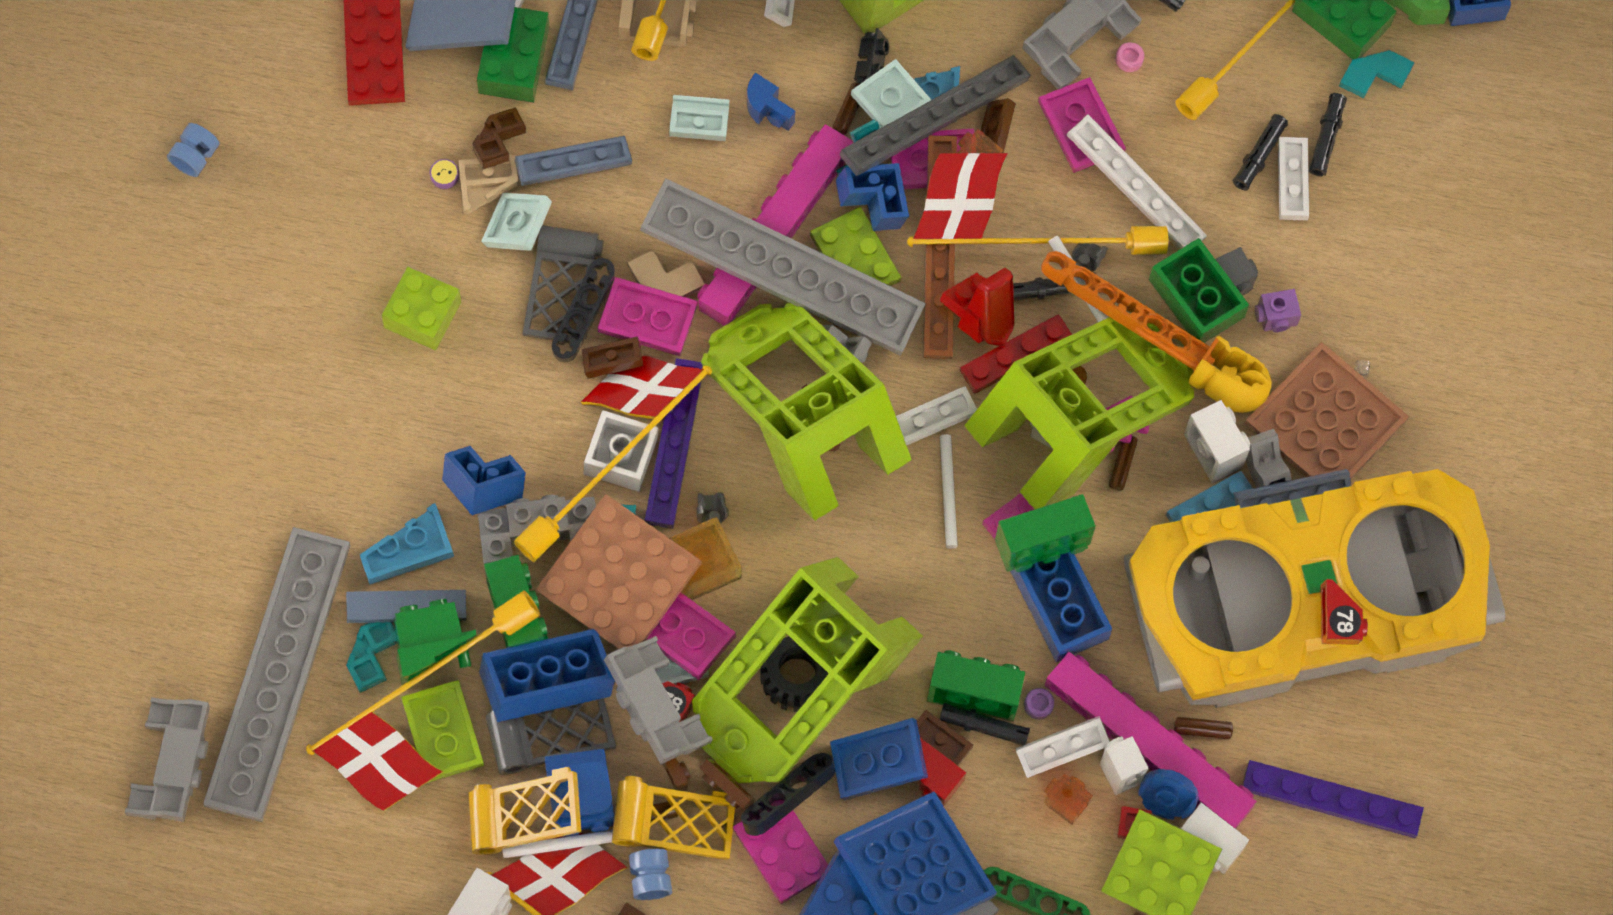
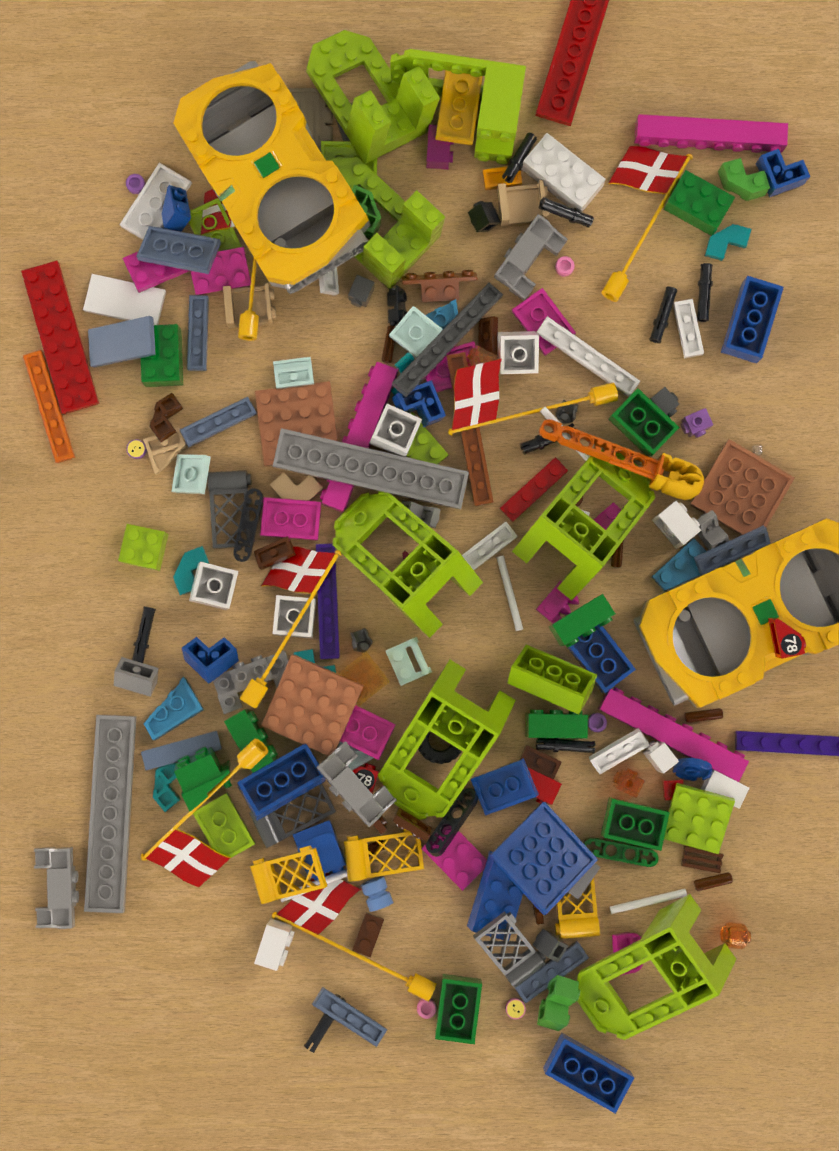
camera: 10 degrees left, 15 degrees up
(331, 89) = (49, 406): none -> orange tile
(366, 484) = (136, 676): none -> light grey brick
(384, 443) = (143, 634): none -> black pin
(485, 345) = (184, 576): none -> teal tile
(512, 381) = (213, 586): none -> white brick
(700, 164) = (297, 409): none -> nougat plate
(763, 101) = (332, 352): blue brick -> none
(765, 556) = (402, 664): none -> light aqua plate
(824, 27) = (361, 291): none -> dark grey brick
(830, 221) = (395, 431): none -> white brick
(940, 46) = (439, 286): none -> dark orange bracket
(984, 306) = (506, 466): red piece -> none
(984, 614) = (552, 679): none -> lime brick
(1034, 155) = (518, 352): none -> white brick
(1064, 856) = (635, 823): none -> green brick
(1388, 183) = (752, 319): none -> blue brick

